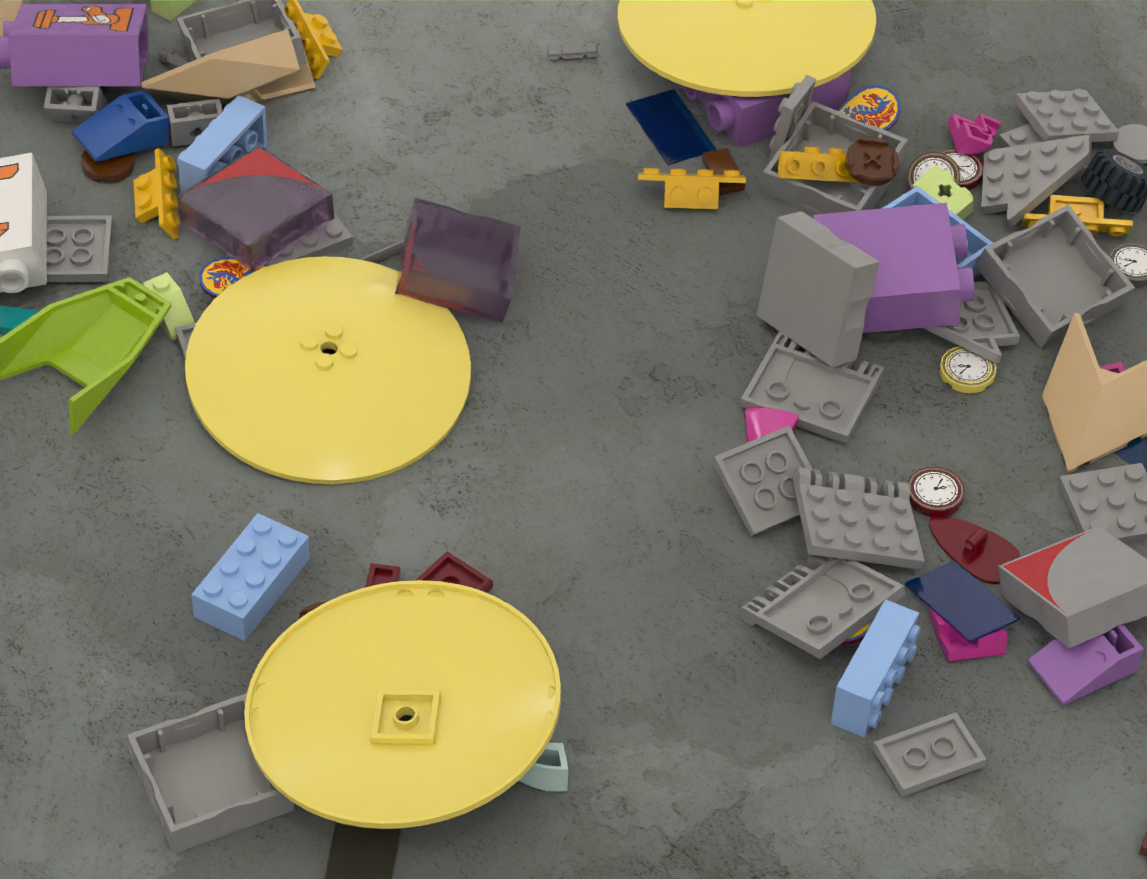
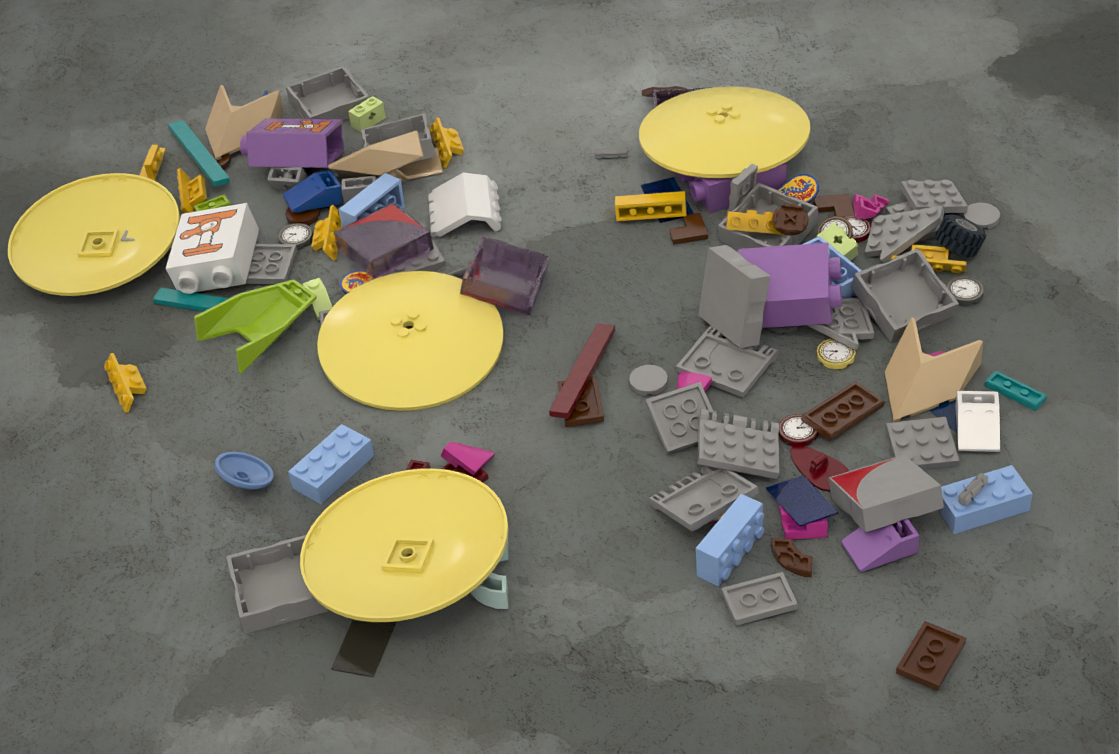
camera: 15 degrees right, 5 degrees down
(106, 198) = (296, 234): none -> tile
(118, 594) = (243, 470): none -> medium blue dish
(361, 139) = (462, 200): none -> white hinge
(458, 555) = (466, 456): none -> dark pink slope
(604, 411) = (582, 371): none -> dark red tile
(608, 459) = (588, 407): none -> reddish brown plate
(653, 140) = (650, 206): none -> yellow brick
(691, 190) = (670, 237): yellow bracket -> none
(702, 421) = (648, 380): none -> light grey tile
(925, 128) = (838, 203): none -> reddish brown tile
(960, 689) = (791, 558): none -> reddish brown tile
(994, 459) = (842, 411): none -> reddish brown tile

